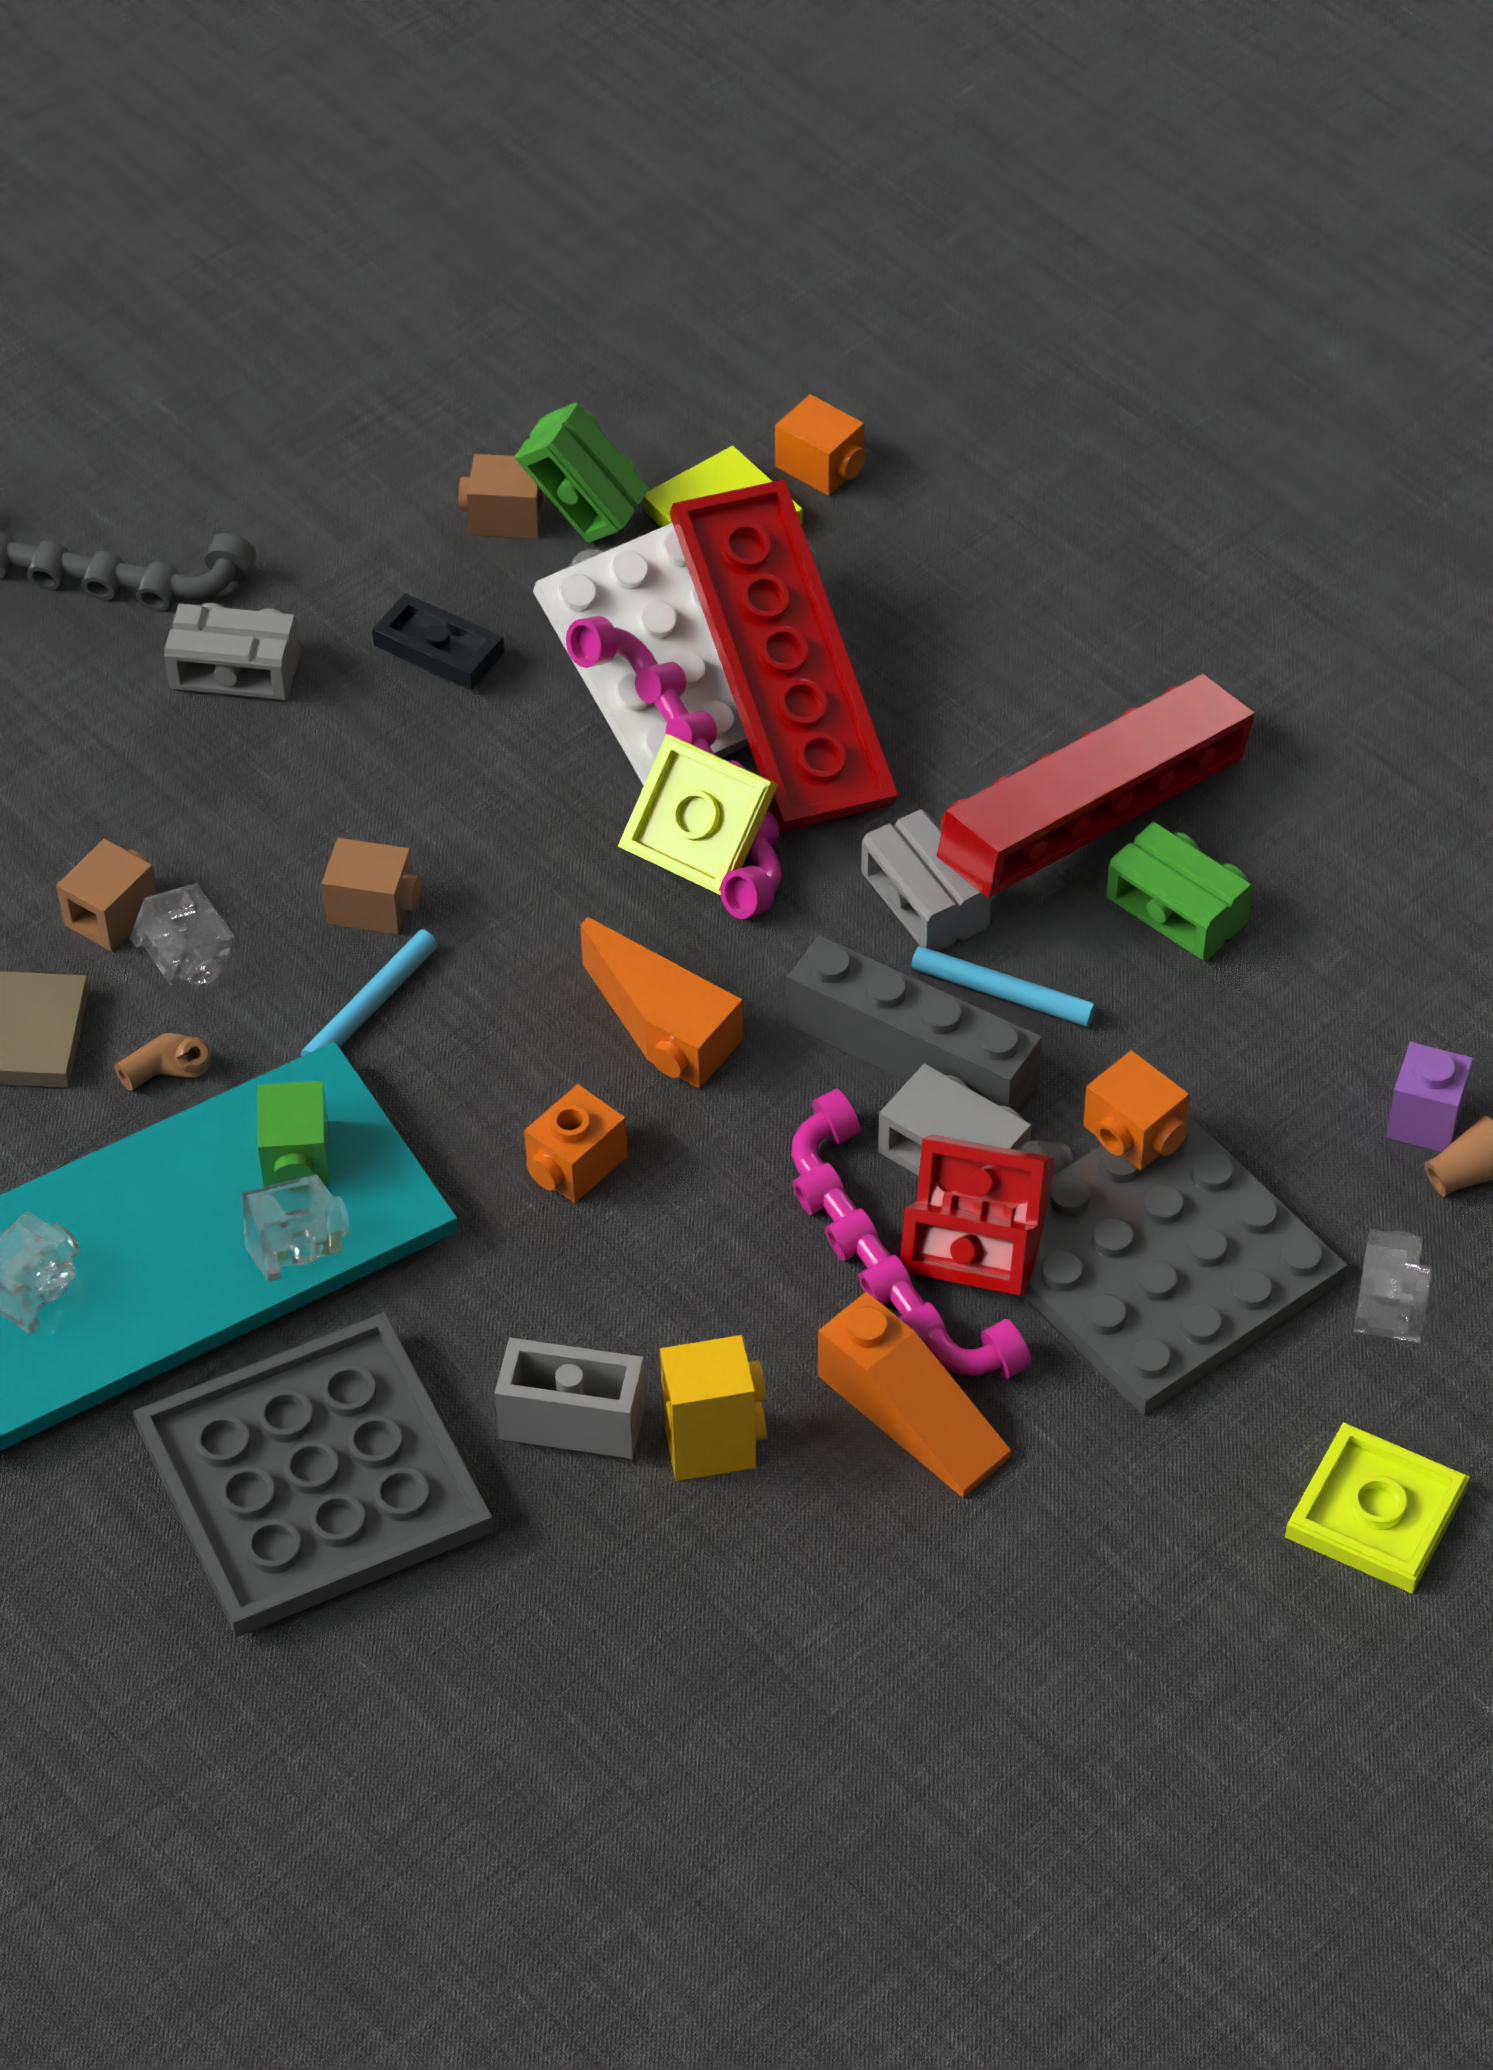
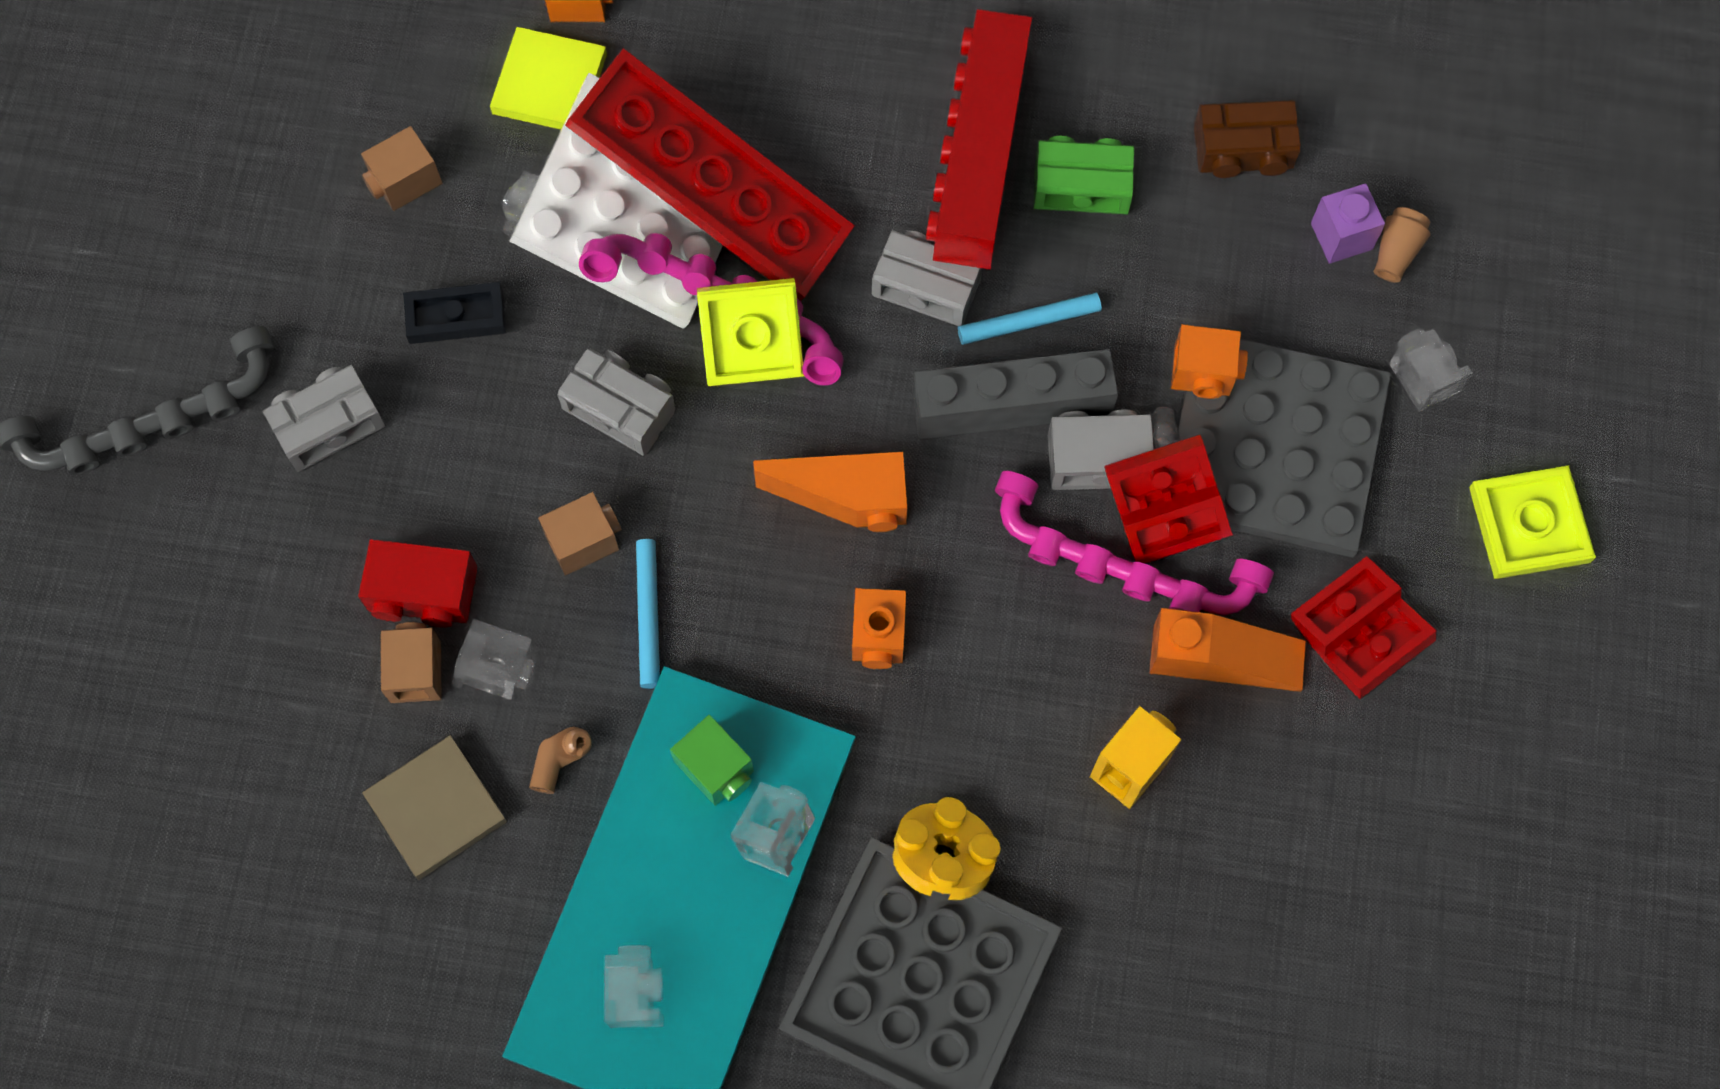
camera: 40 degrees left, 20 degrees up
(182, 831) = (417, 583): none -> red brick
(413, 1361) = (952, 826): none -> yellow plate
(516, 800) = (617, 400): none -> light grey brick
(570, 1398) = (1043, 811): light grey brick -> none
(582, 472) = (449, 120): bright green brick -> none
(1086, 1478) = (1363, 627): none -> red slope
(1395, 959) = (1247, 138): none -> reddish brown brick

